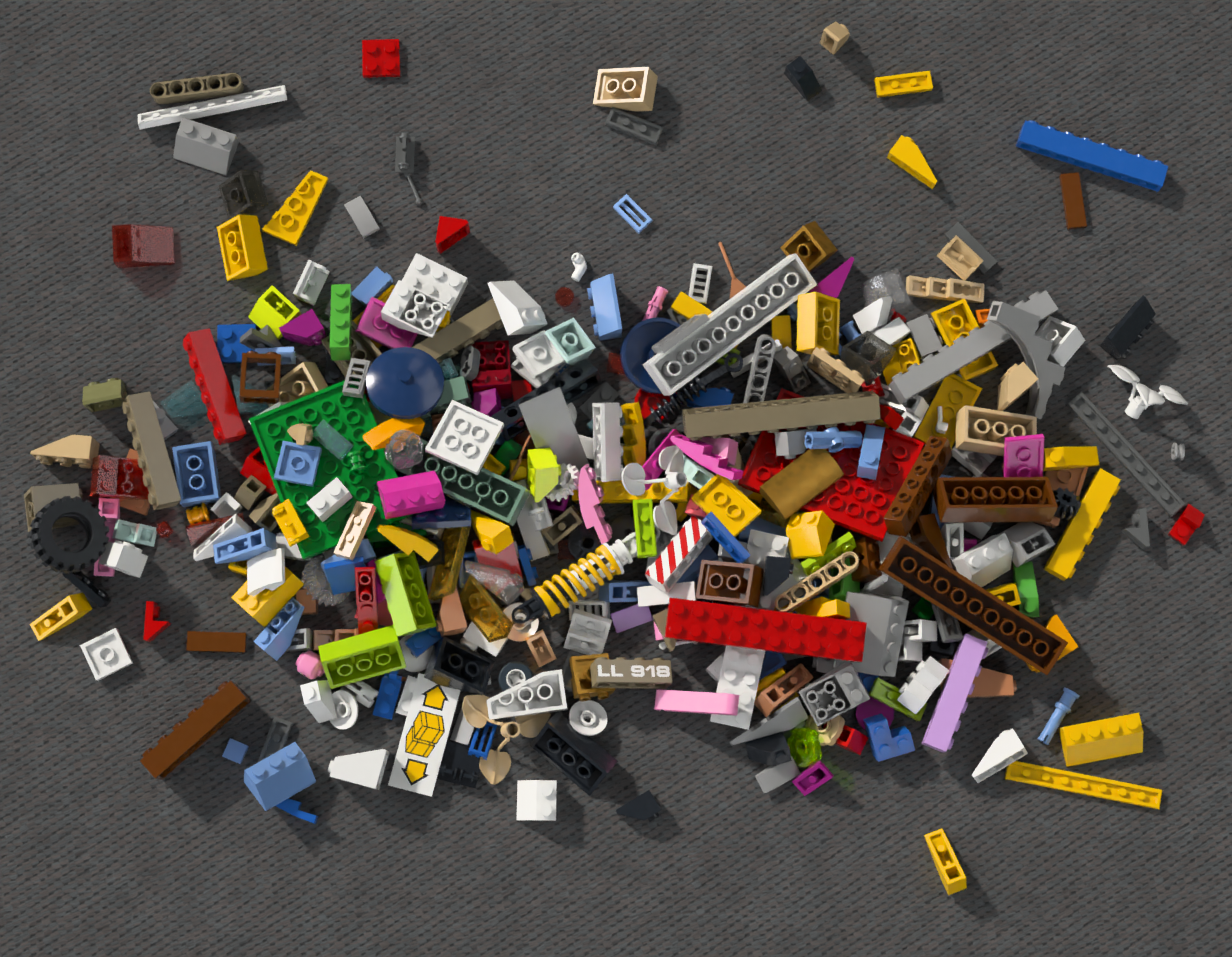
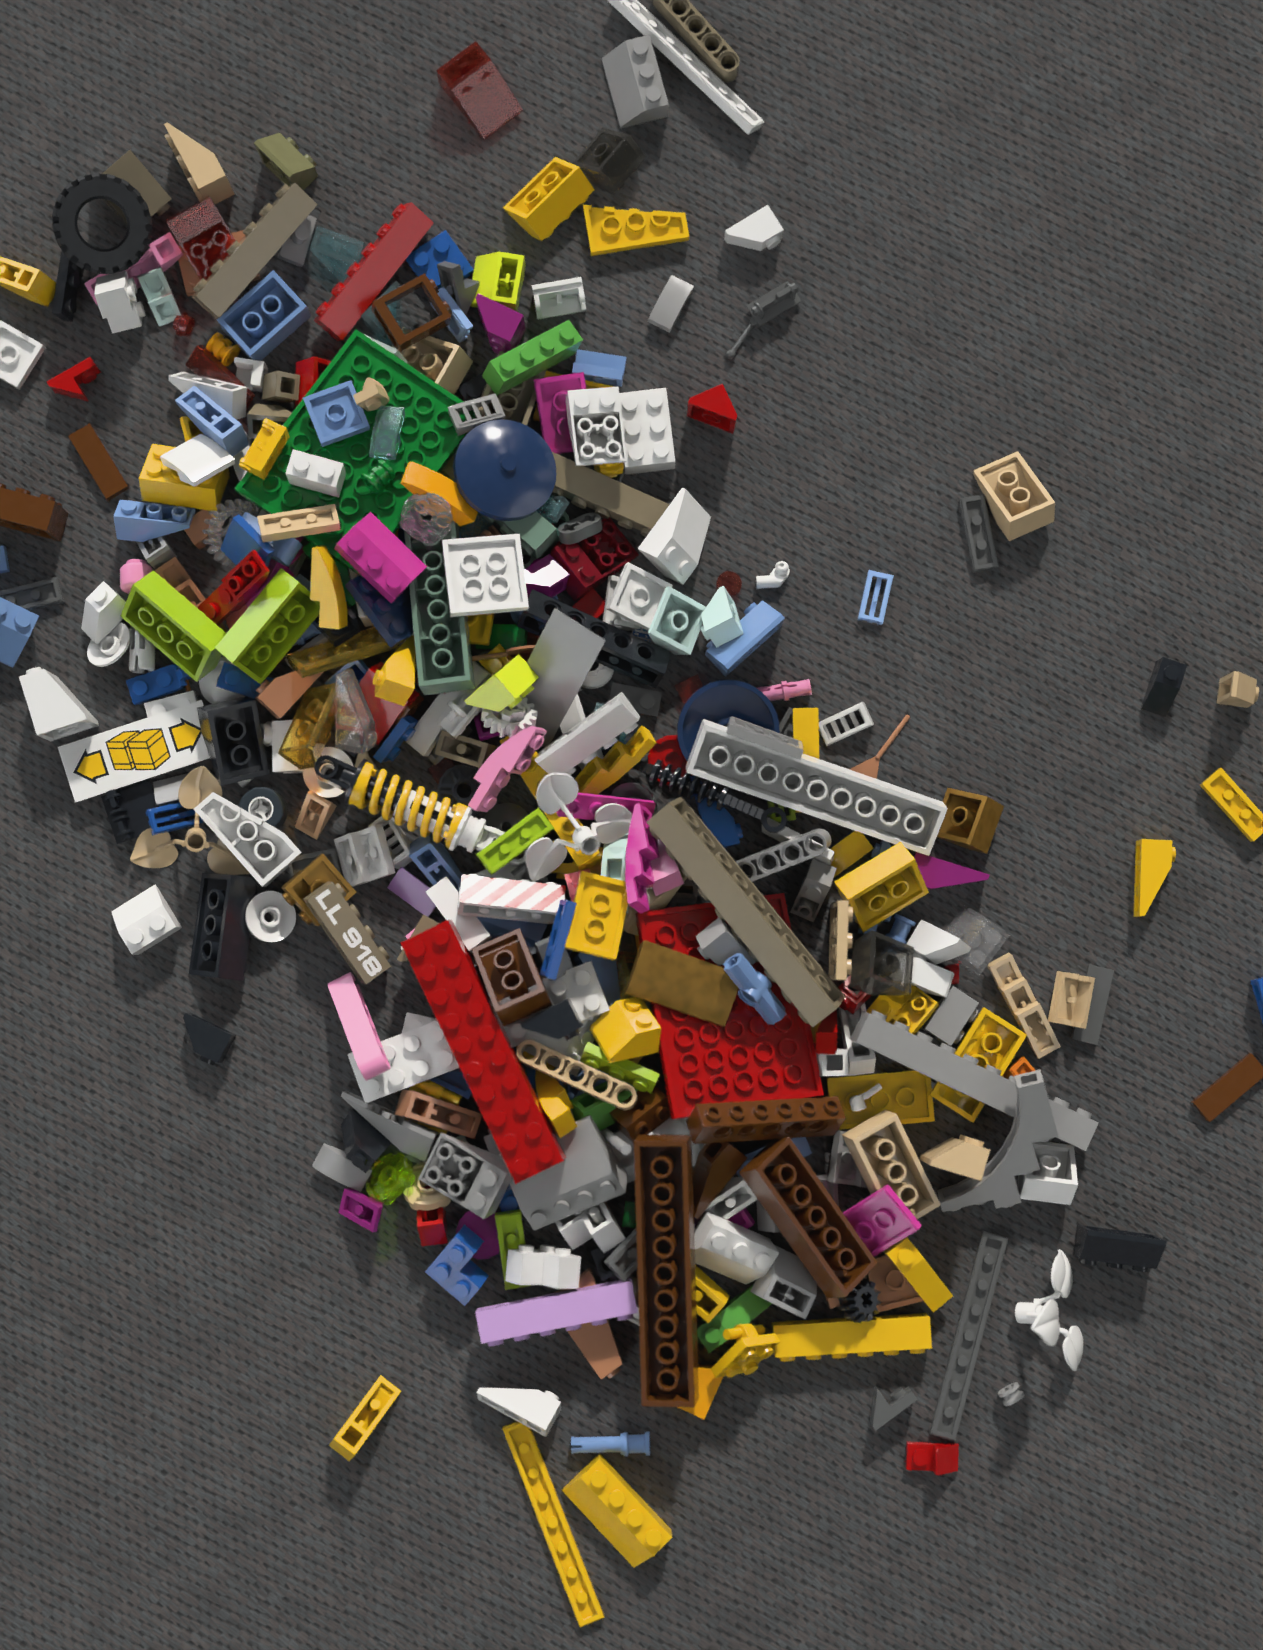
camera: 60 degrees right, 5 degrees up
(352, 134) = (756, 231): none -> white slope
(381, 58) = (866, 205): red plate -> none
(586, 314) = (721, 619): none -> light aqua slope
(870, 452) = (771, 1040): medium blue slope -> none
(1054, 593) = (747, 1351): none -> yellow plate

